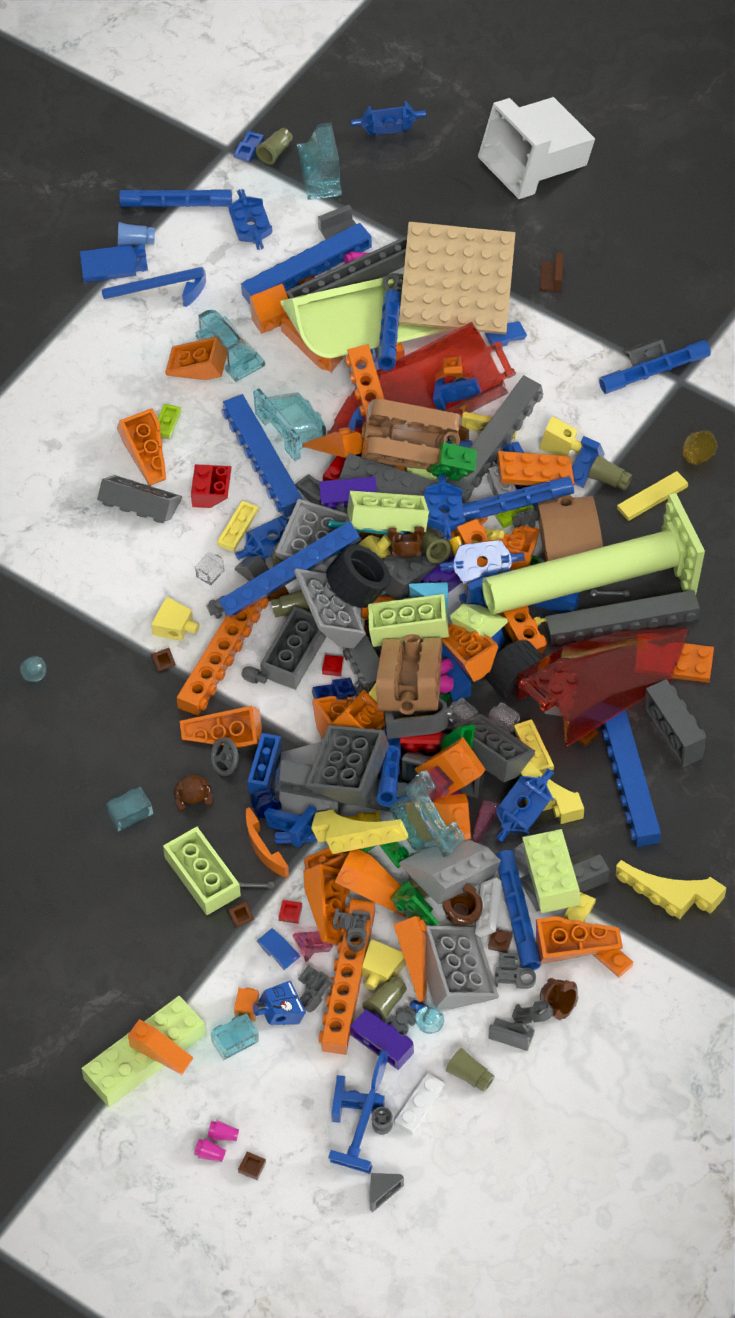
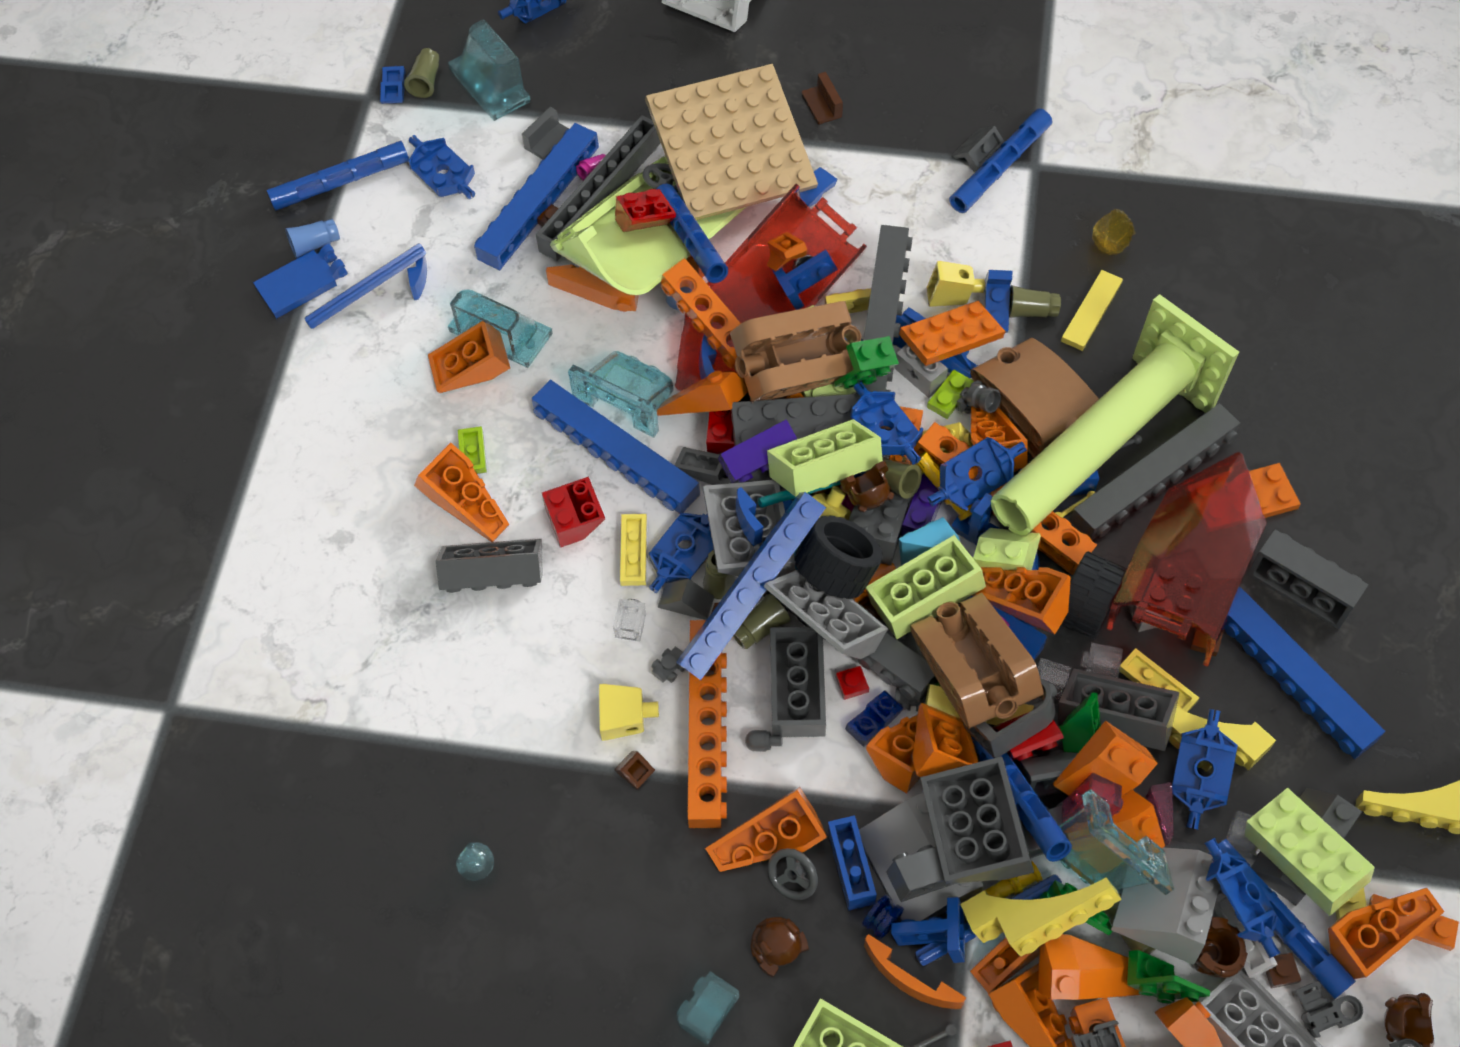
camera: 25 degrees left, 5 degrees up
(267, 308) = (526, 262): orange slope -> none
(313, 526) = (746, 517): none -> blue slope
(365, 302) = (643, 210): none -> red slope
(495, 895) = (1245, 896): none -> blue plate
(518, 499) = (958, 373): blue piece -> none
(529, 521) = (984, 398): none -> dark grey wheel

